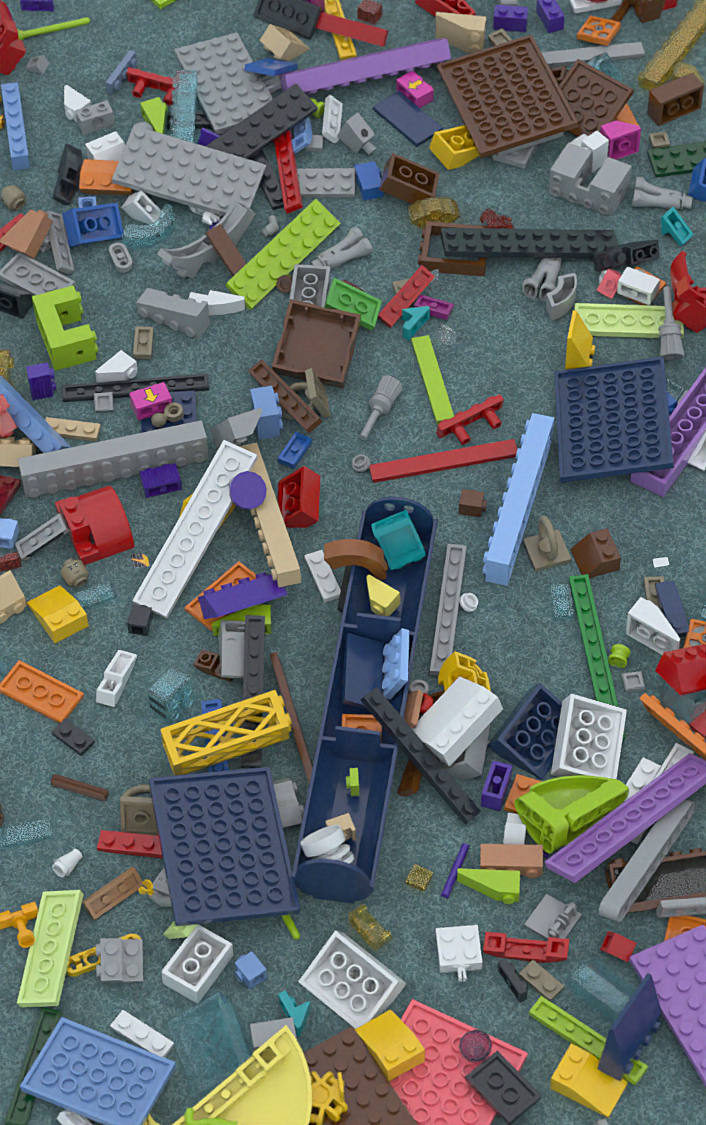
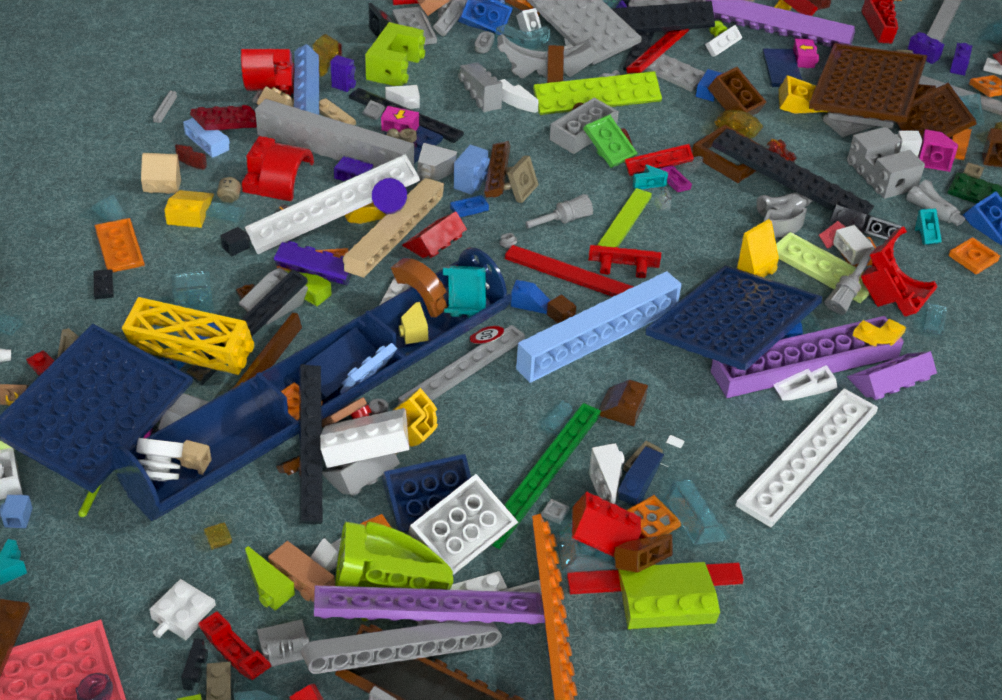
camera: 35 degrees right, 10 degrees down
(42, 537) = (230, 155): light grey plate -> none
(79, 787) = (66, 315): reddish brown axle -> none
(115, 678) = (174, 263): white slope -> none
(143, 343) = (441, 93): dark tan plate -> none
(302, 135) = (690, 38): medium blue slope -> none
(316, 143) = (696, 49): light grey tile -> none
(318, 341) = (556, 148): reddish brown tile -> none
(350, 248) = (652, 115): light grey piece -> none
(351, 981) = (77, 573): white slope -> none
(353, 782) = (244, 431): lime plate -> none
(357, 135) = (729, 52): light grey torso -> none
(368, 927) = (137, 544): clear yellow hinge -> none
(391, 1044) = (36, 640): yellow slope -> none
(439, 506) = (529, 297): none -> blue slope
(440, 565) = (487, 334): none -> sticker
(453, 873) = (258, 549): dark purple bar -> none
(462, 31) = (877, 33): tan slope -> none
(468, 602) = (483, 373): white plate -> none
(496, 786) = (352, 507): dark purple brick -> none
(546, 548) = (586, 374): dark tan tile -> none
(619, 656) = (562, 483): lime wheel -> none

